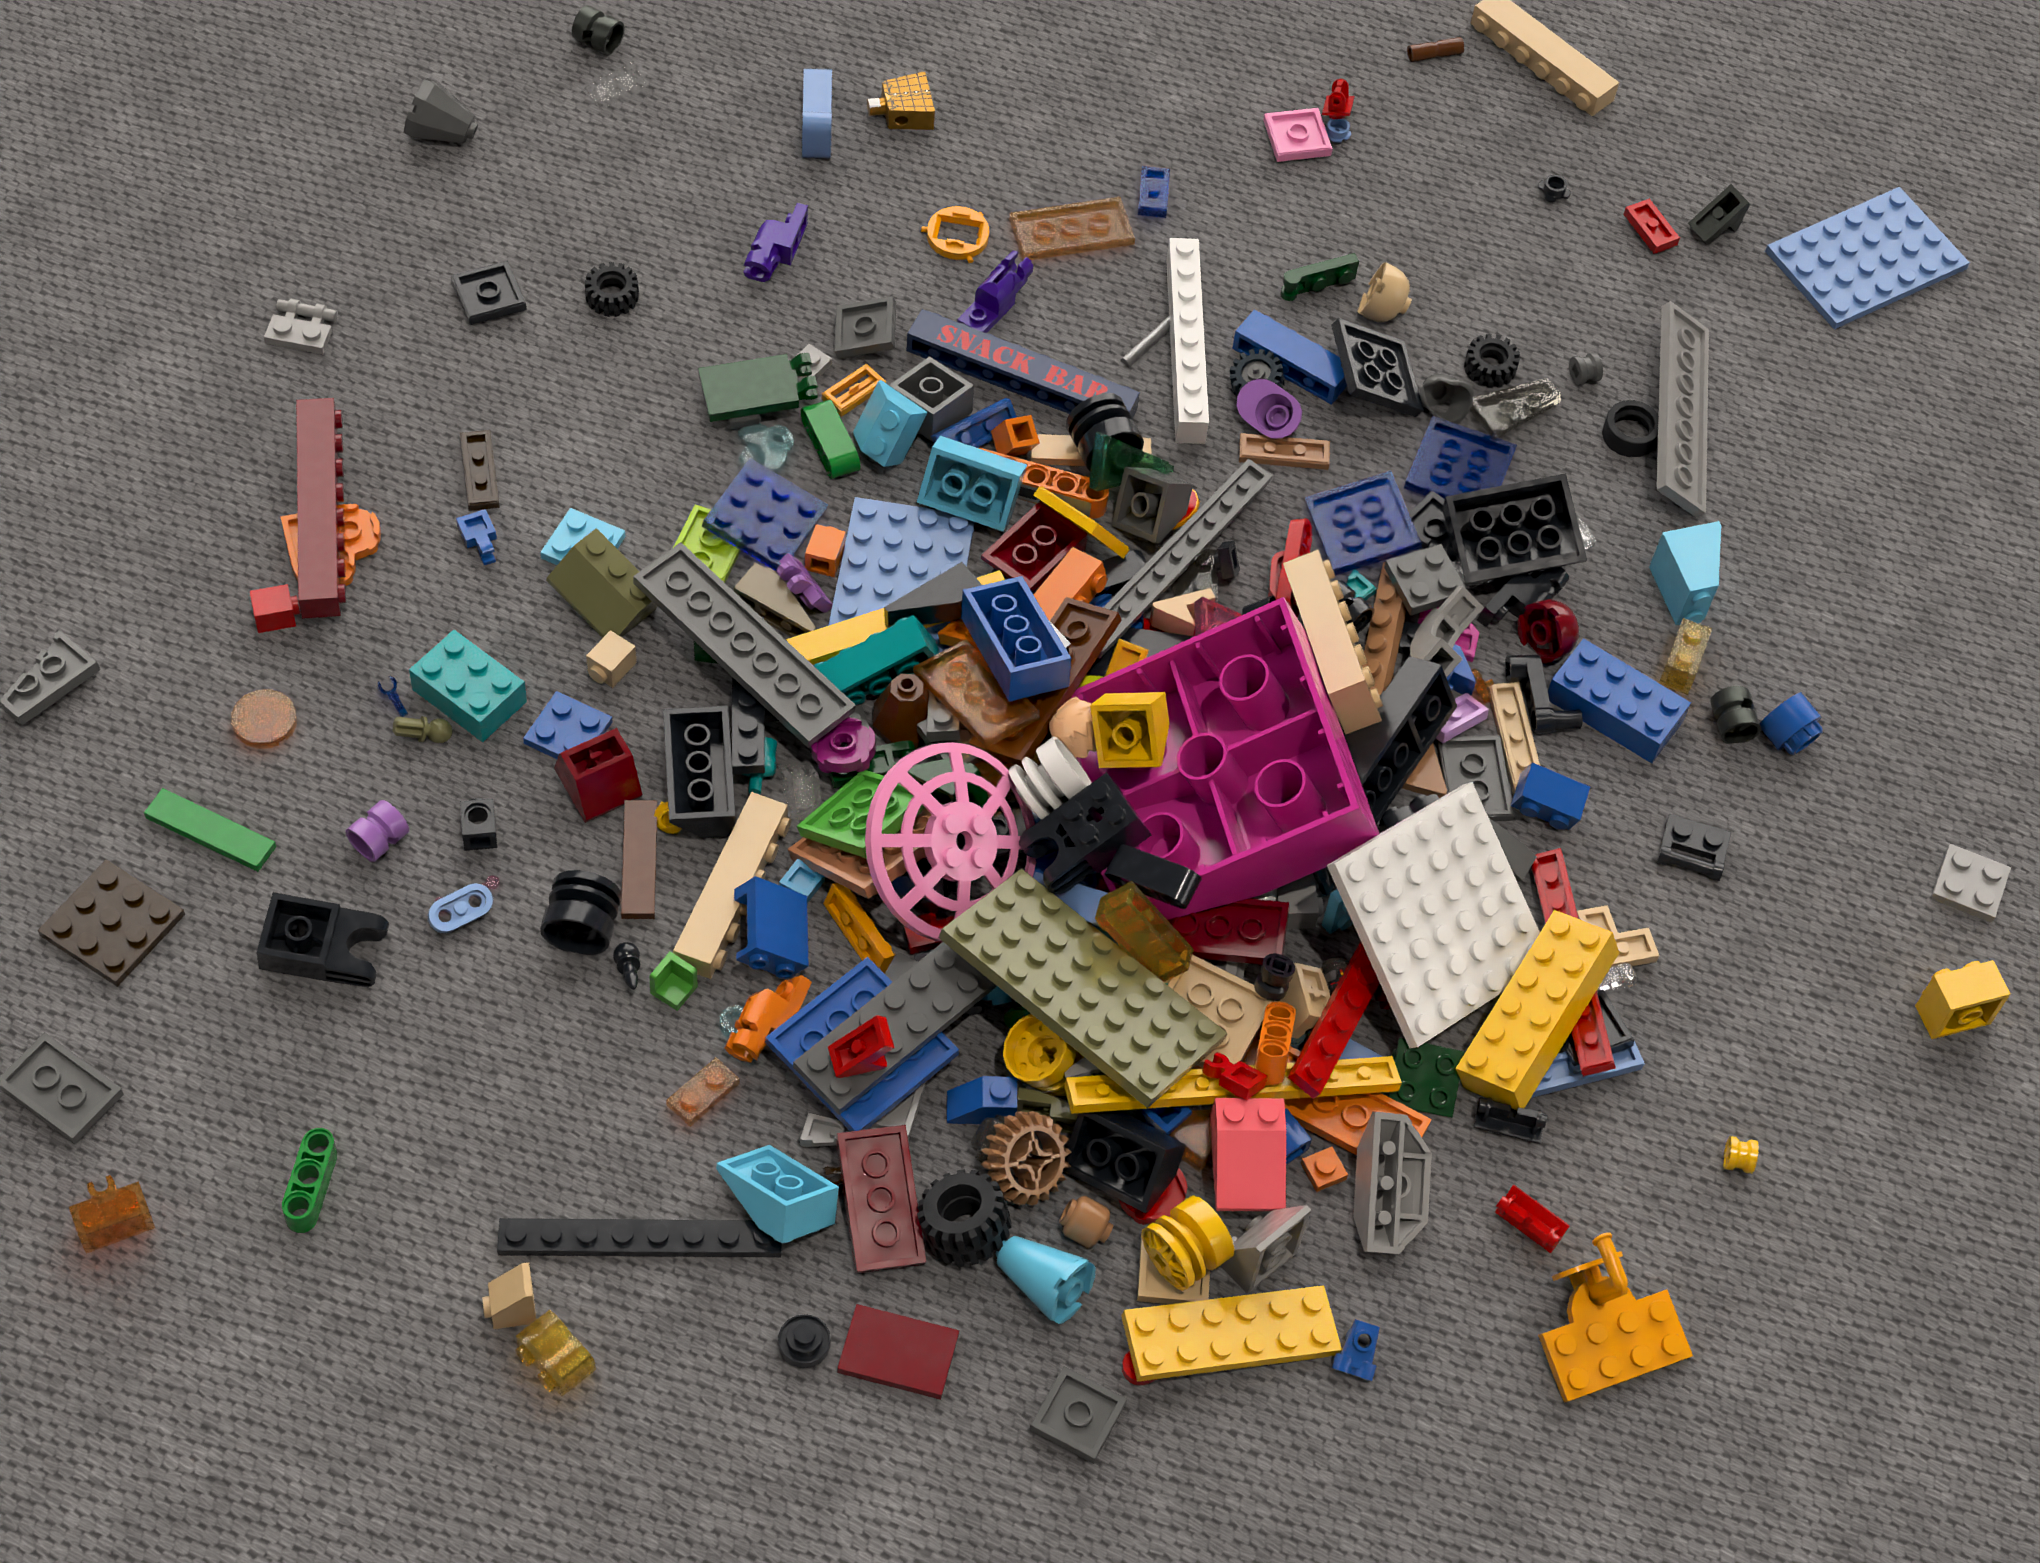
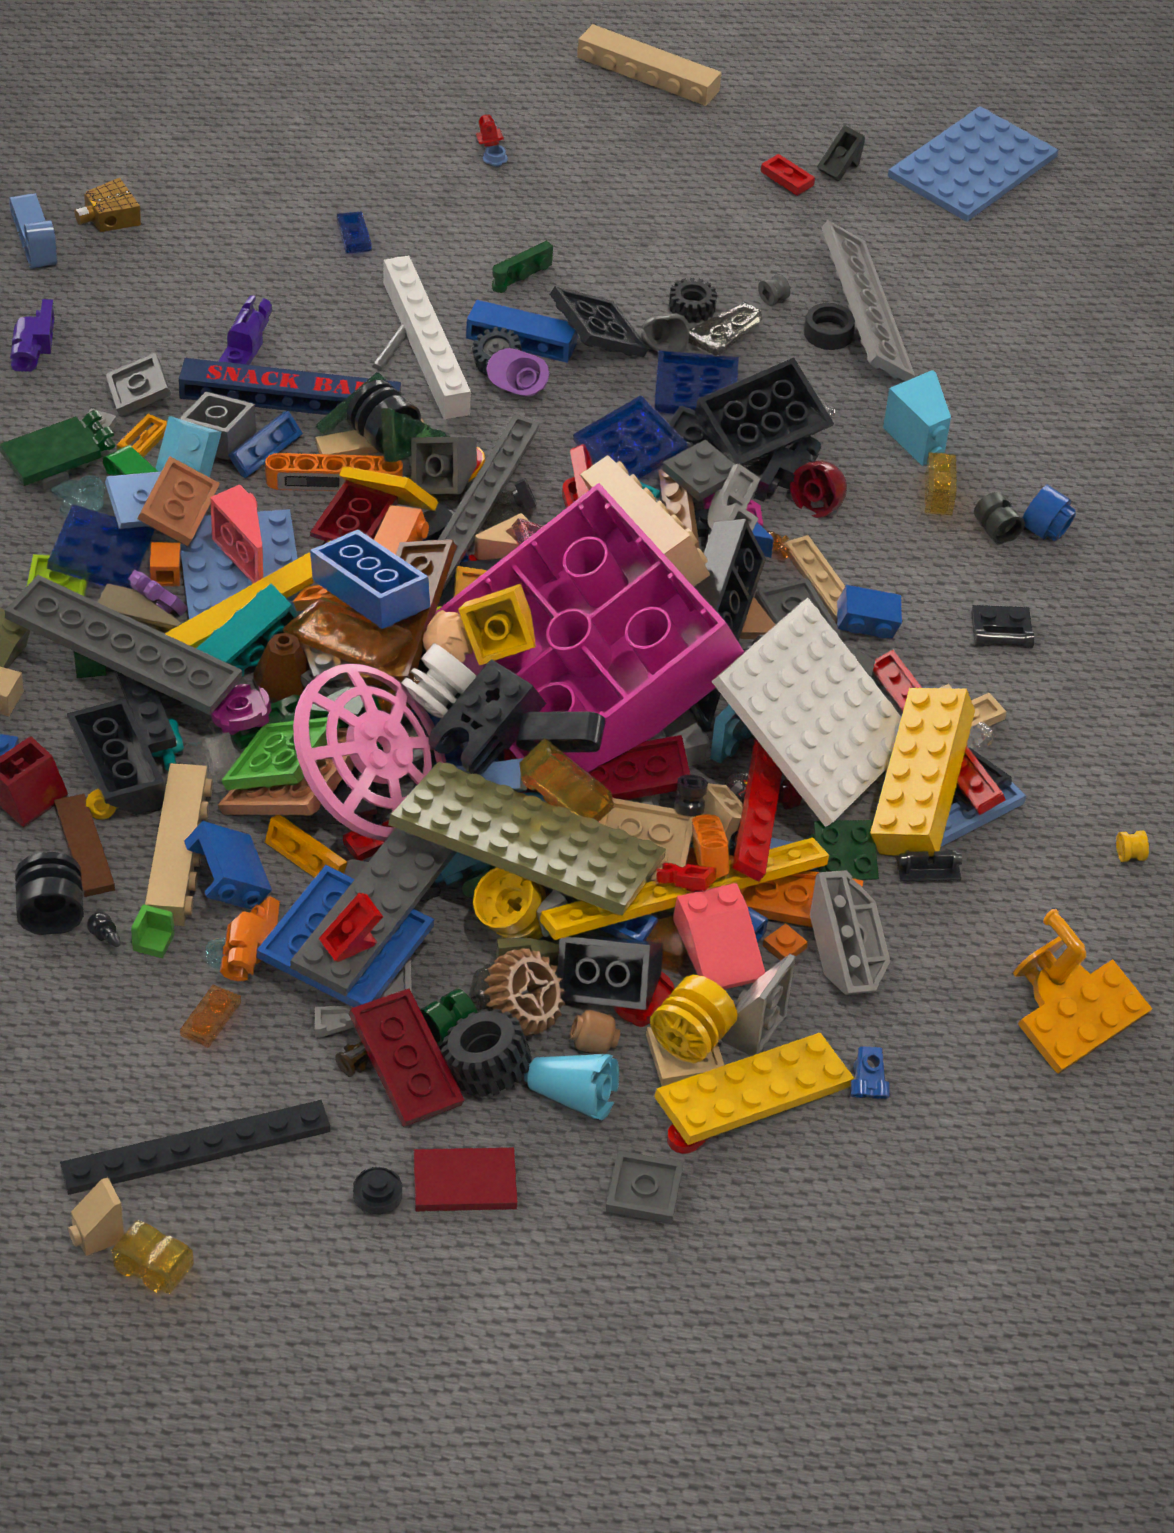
camera: 15 degrees left, 10 degrees down
(780, 1193) = (315, 1075): medium azure slope -> none
(802, 879) = (243, 823): dark azure plate -> none
(820, 471) = (129, 495): none -> light blue plate
(858, 483) = (178, 501): none -> nougat plate
(907, 533) = (238, 530): none -> coral slope
(934, 1162) = (444, 1015): none -> dark green wheel
(935, 600) = (287, 571): slope -> none
(953, 248) = (192, 310): light orange piece -> none
(971, 483) = (282, 479): medium azure brick -> none
(982, 1099) = (464, 957): blue slope -> none
(1015, 436) = (304, 437): orange brick -> none
(1060, 415) = (340, 412): none -> clear green tile
(1072, 228) = (292, 274): clear orange tile -> none
(1284, 451) = (542, 405): medium nougat tile -> none
(1297, 134) = (462, 165): bright pink plate -> none
(1386, 294) = (585, 267): tan cylinder -> none
(1432, 49) = (557, 80): reddish brown piece -> none
(1466, 715) = (773, 570): lavender plate -> none
(1531, 1218) = (977, 937): red hinge -> none
(1543, 719) = (828, 542): black beam -> none
(1554, 188) = (695, 162): black plate -> none
(1618, 700) = (897, 529): brick -> none

